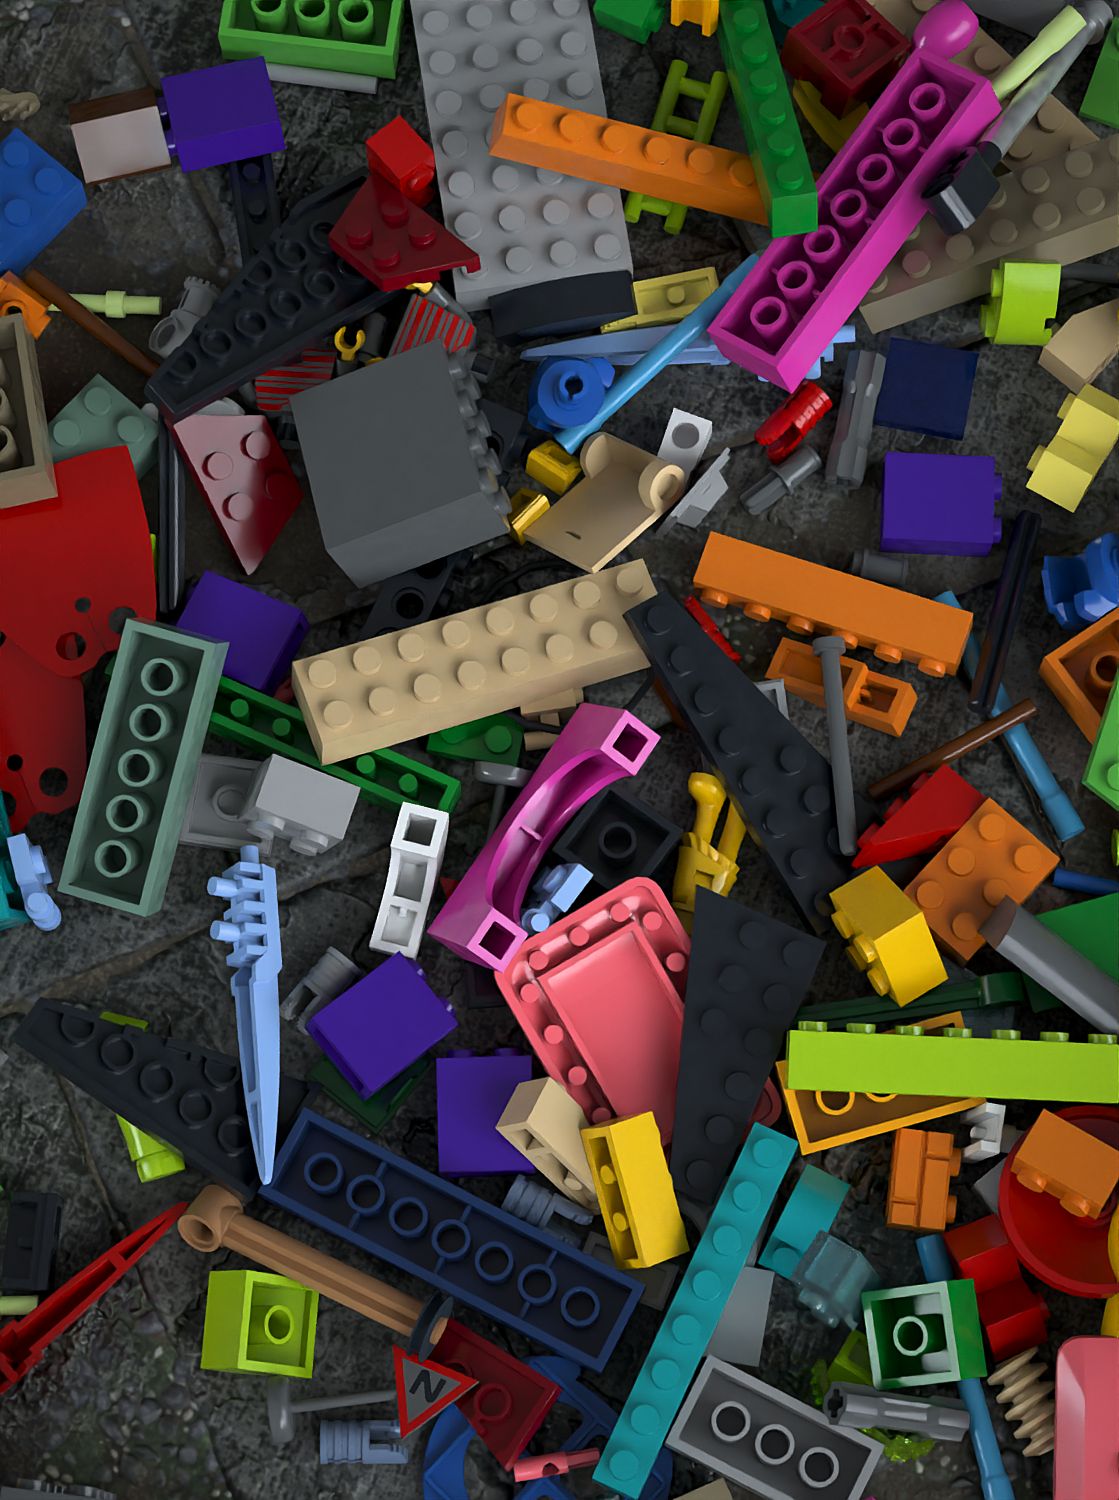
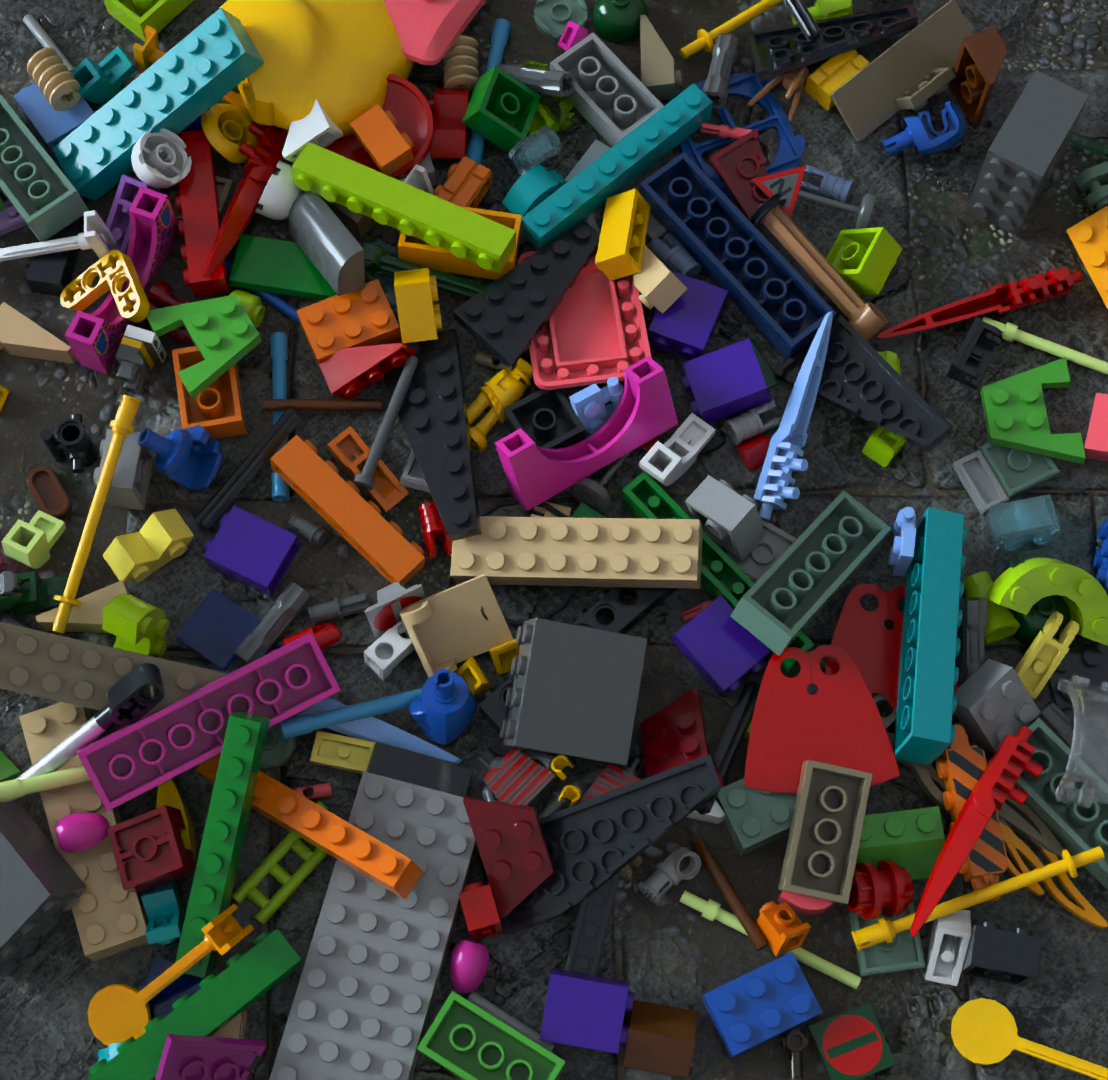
camera: 155 degrees left, 5 degrees down
(302, 950) = (754, 451): none -> red slope
(389, 100) = (468, 965): none -> dark pink animal
(708, 229) = (320, 790): none -> coral pin

